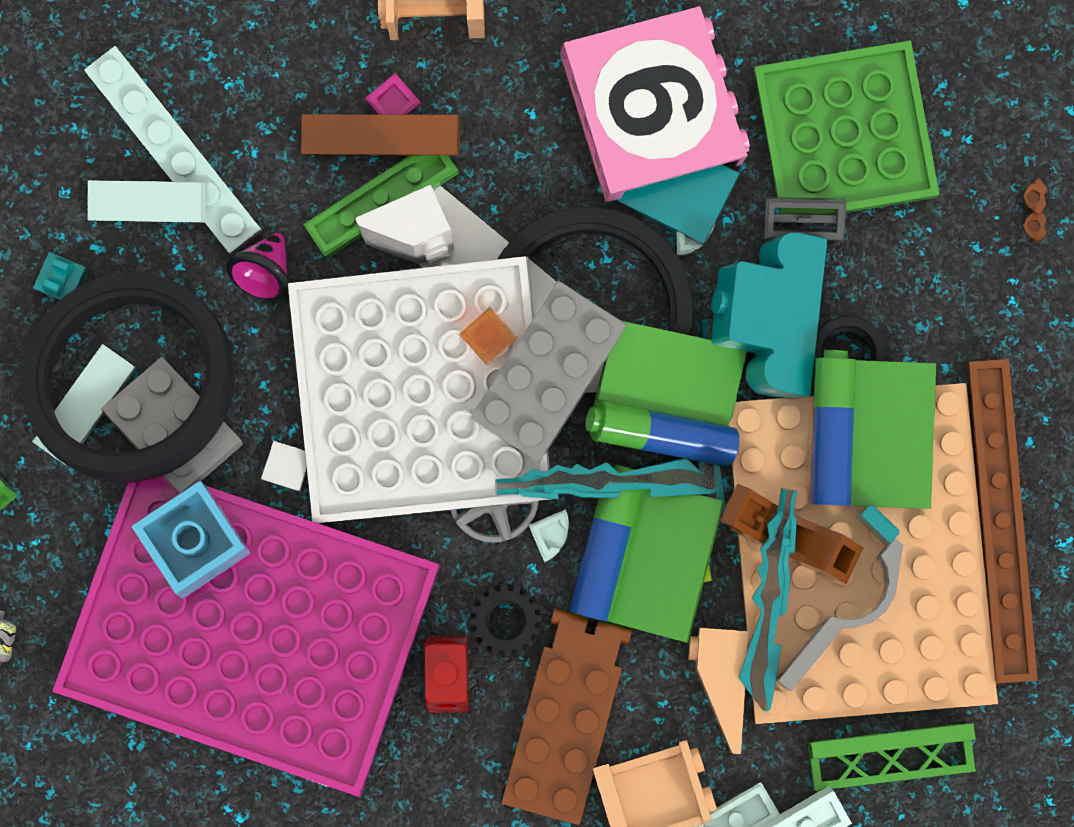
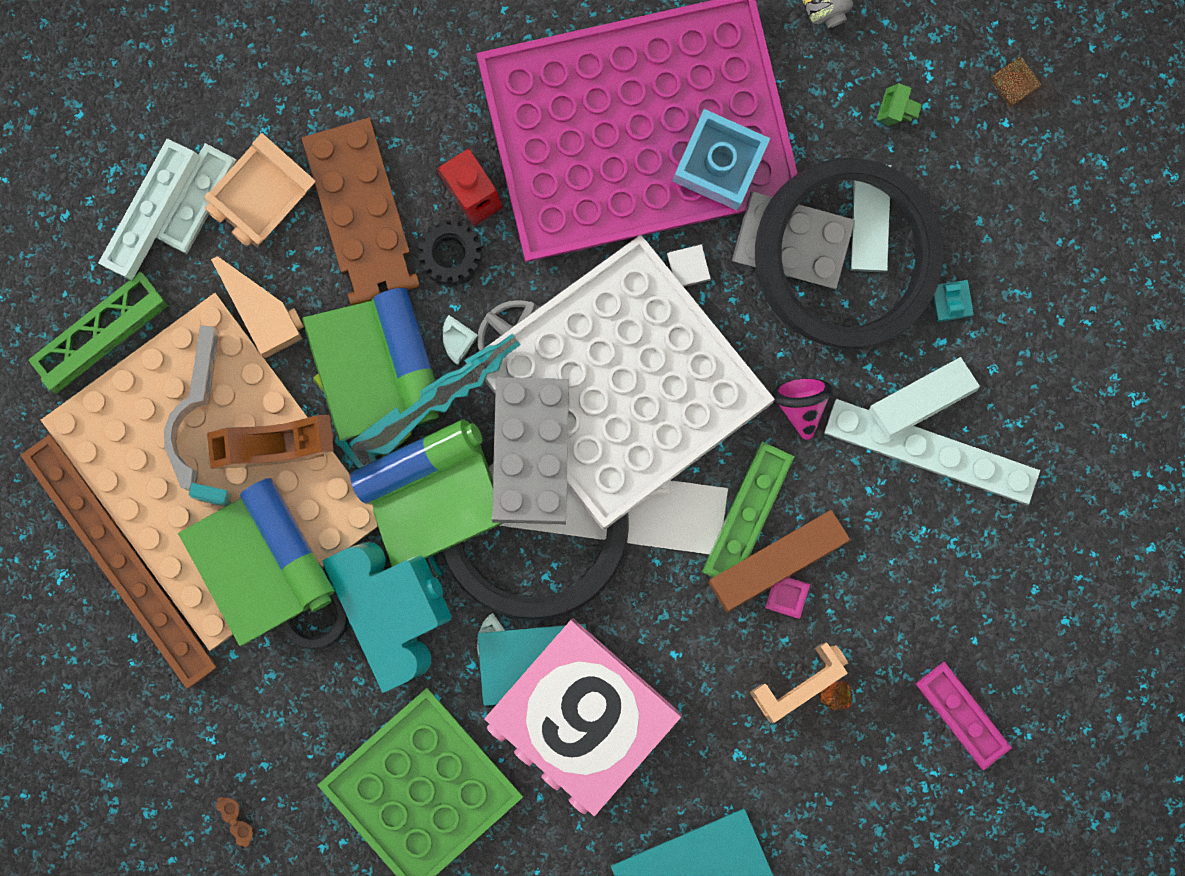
camera: 145 degrees right, 0 degrees up
(409, 228) = (704, 495): white slope -> none
(488, 335) = (593, 449): clear orange plate -> none
(770, 217) = (416, 710): dark grey tile -> none
(771, 597) = (257, 387): teal sword -> none

